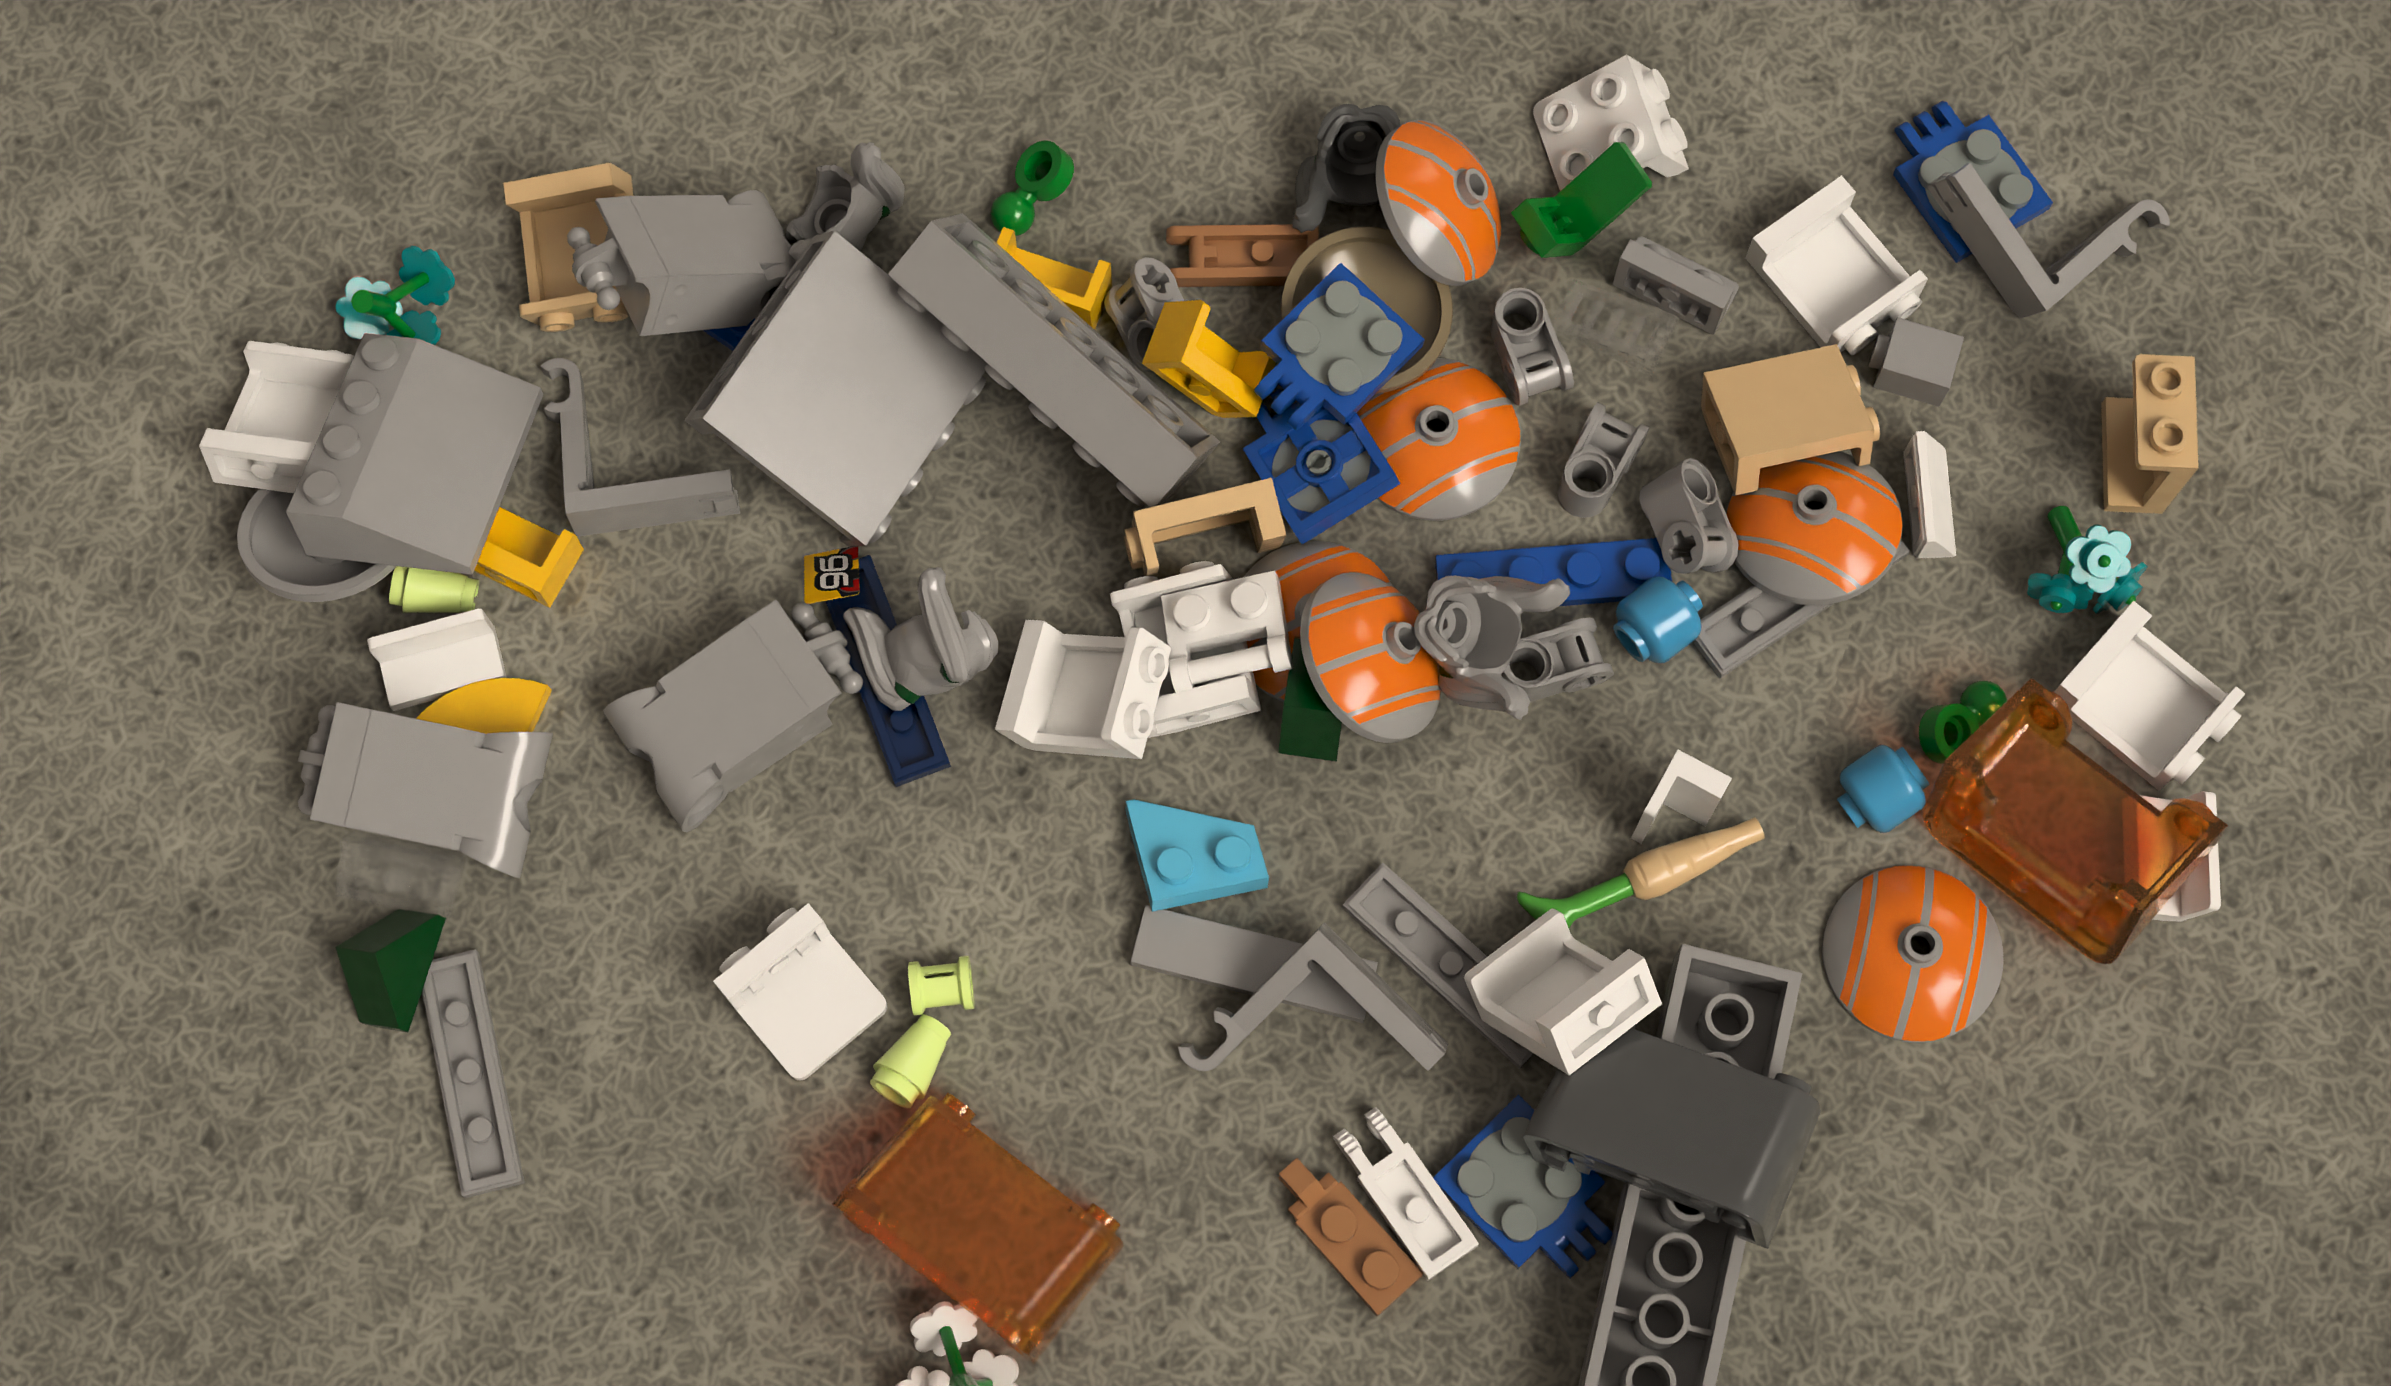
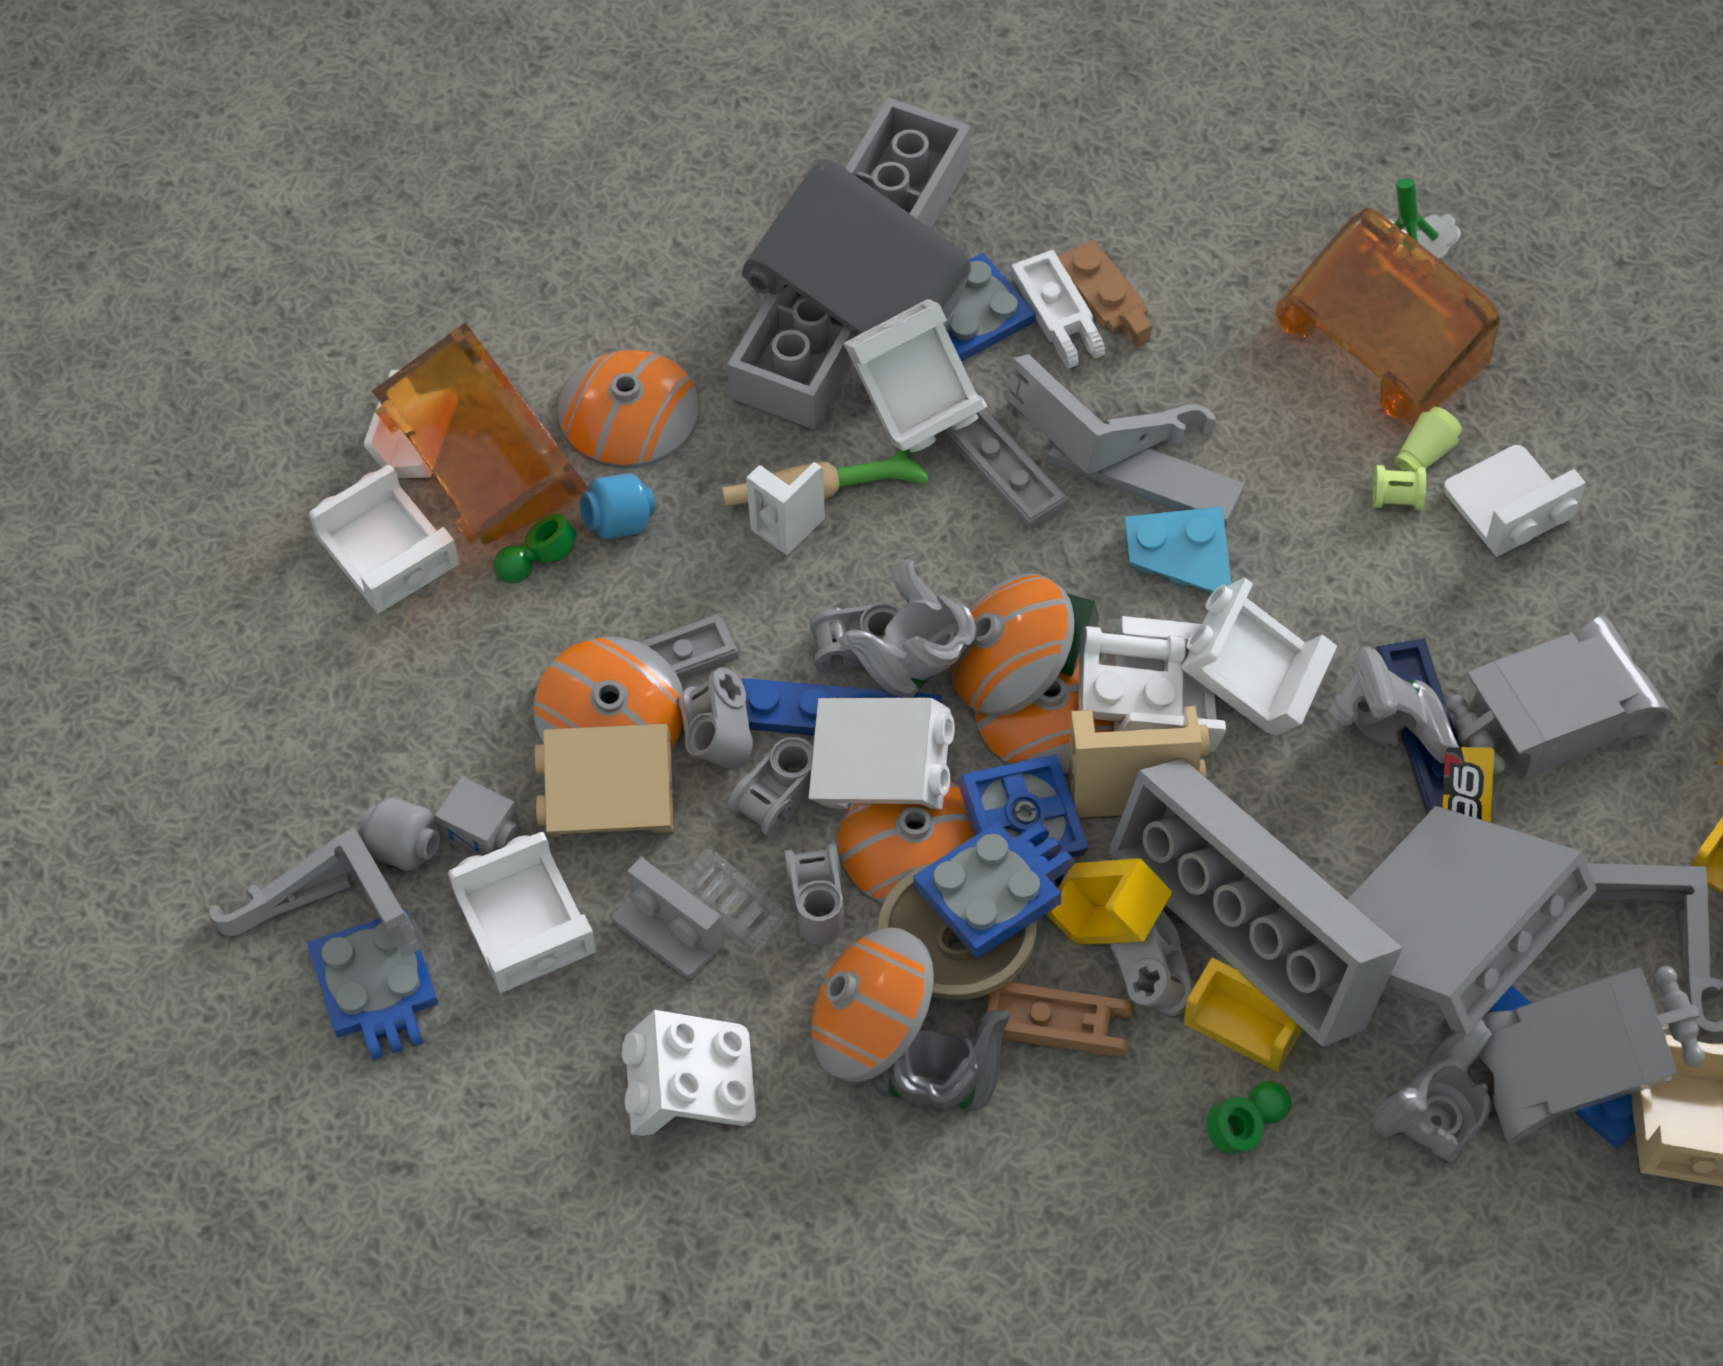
camera: 170 degrees left, 15 degrees down
(1492, 479) = (881, 752): none -> white panel
(1585, 206) = (743, 1001): green bracket -> none
(1658, 619) = (763, 649): dark azure head -> none
(1929, 497) = (504, 717): white slope -> none
(1997, 329) = (399, 833): none -> light grey head
(2088, 560) = (385, 609): teal plant -> none
(2150, 437) = (303, 708): tan panel -> none

